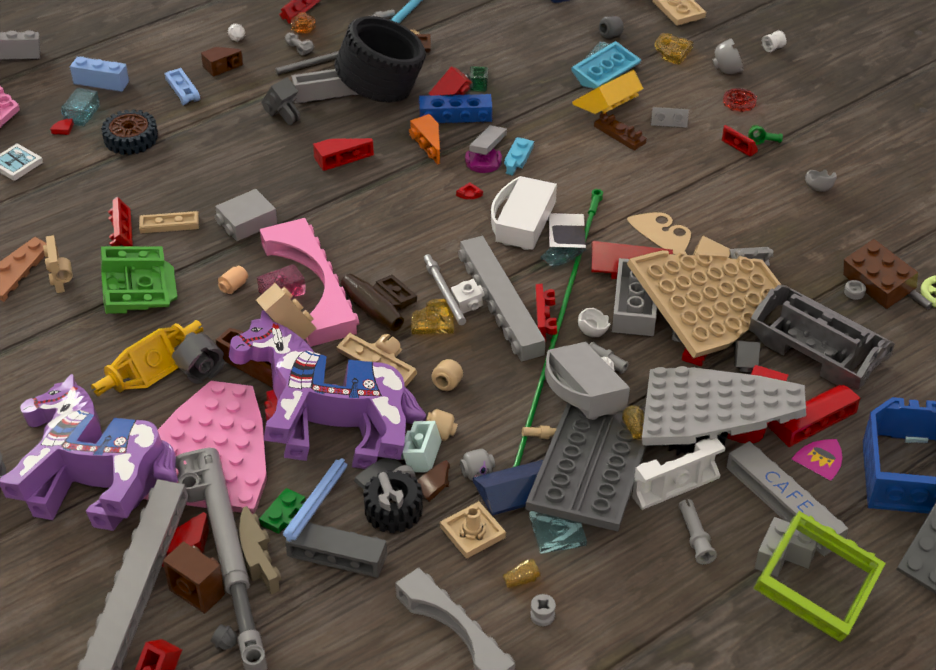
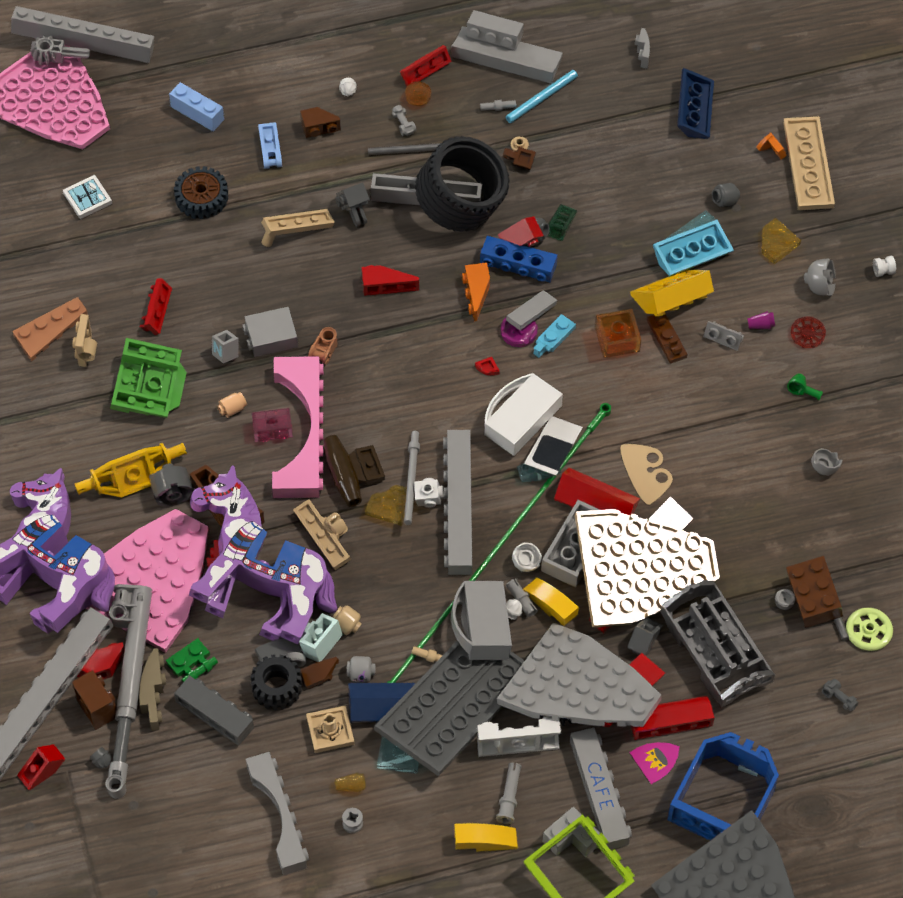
camera: 20 degrees right, 15 degrees up
(62, 127) = (143, 164): red tile -> none
(81, 106) = (165, 145): clear light blue brick -> none
(169, 222) = (201, 315): tan tile -> none
(205, 234) = (225, 346): none -> light grey brick
(230, 129) = (295, 223): none -> tan piece
(286, 311) = (254, 472): tan brick -> none
(305, 208) = (324, 348): none -> nougat piece
(314, 500) = (213, 661): light blue axle -> none
(389, 493) = (270, 678): light grey bar -> none
(447, 375) = (374, 571): tan head -> none
(548, 297) = (488, 531): red plate -> none
(577, 135) = (617, 333): none -> clear orange brick
(634, 420) = (505, 673): clear yellow cone -> none
(640, 350) = (552, 601): none -> yellow slope
(693, 580) = (485, 837): none -> yellow slope
(697, 99) = (761, 321): none -> magenta cone
(739, 141) = (775, 388): red slope -> none
(762, 253) = (714, 531): light grey hinge -> none

